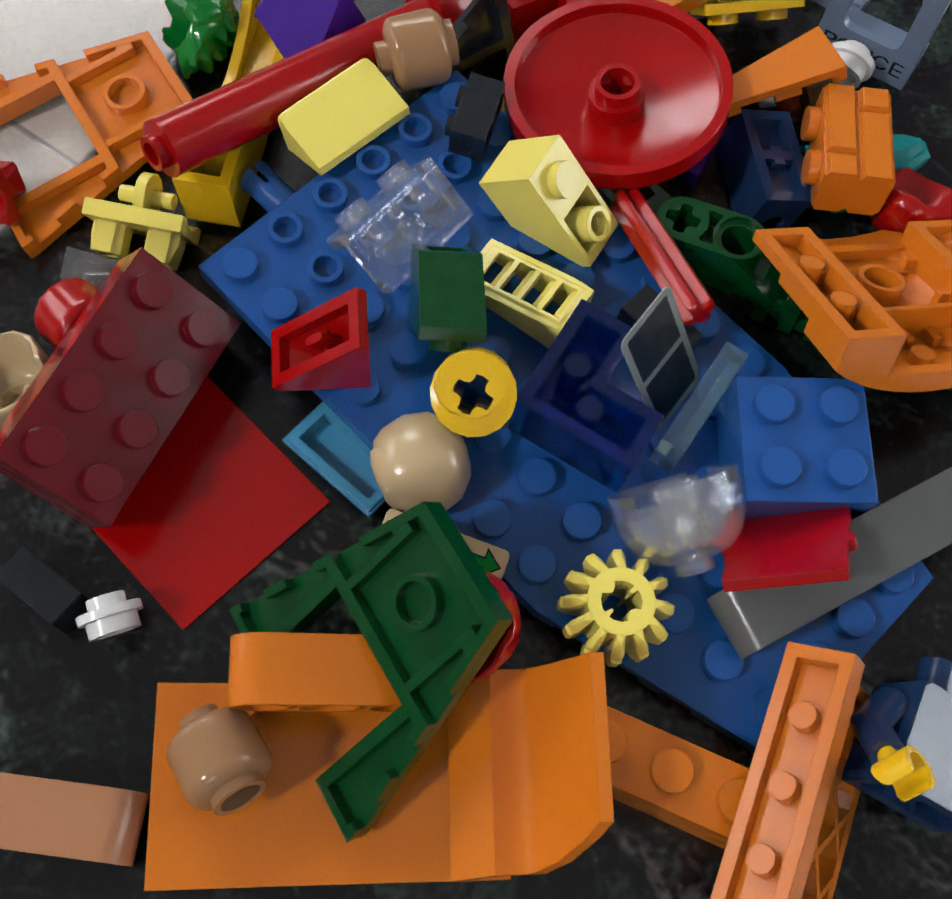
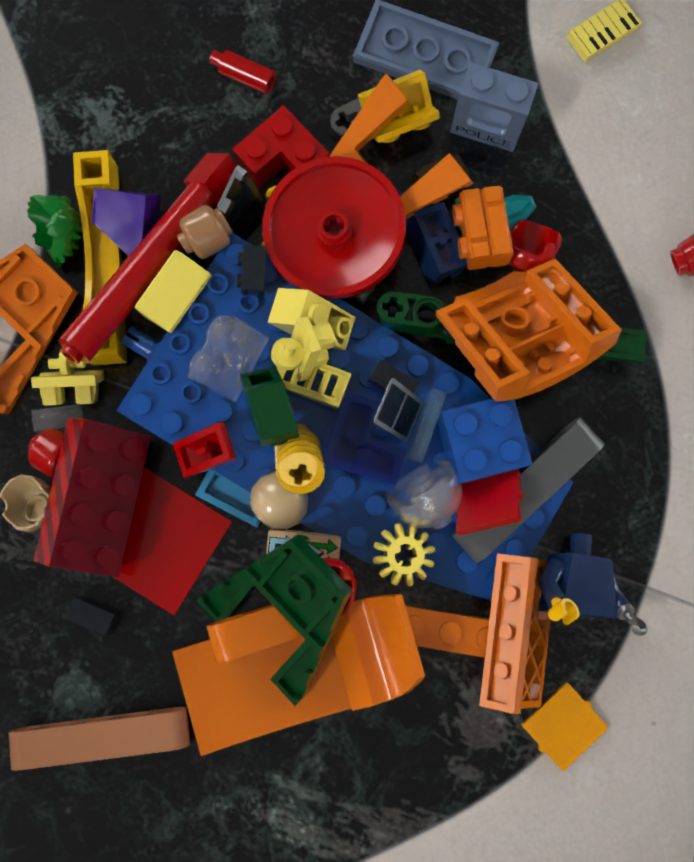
camera: 10 degrees left, 15 degrees up
(109, 615) = (134, 621): white plate -> none
(219, 759) = (218, 685): medium nougat head -> none
(524, 219) = (305, 348): none -> light yellow hips
(662, 256) = (385, 337): red axle -> none
(858, 61) = (475, 147): white plate -> none

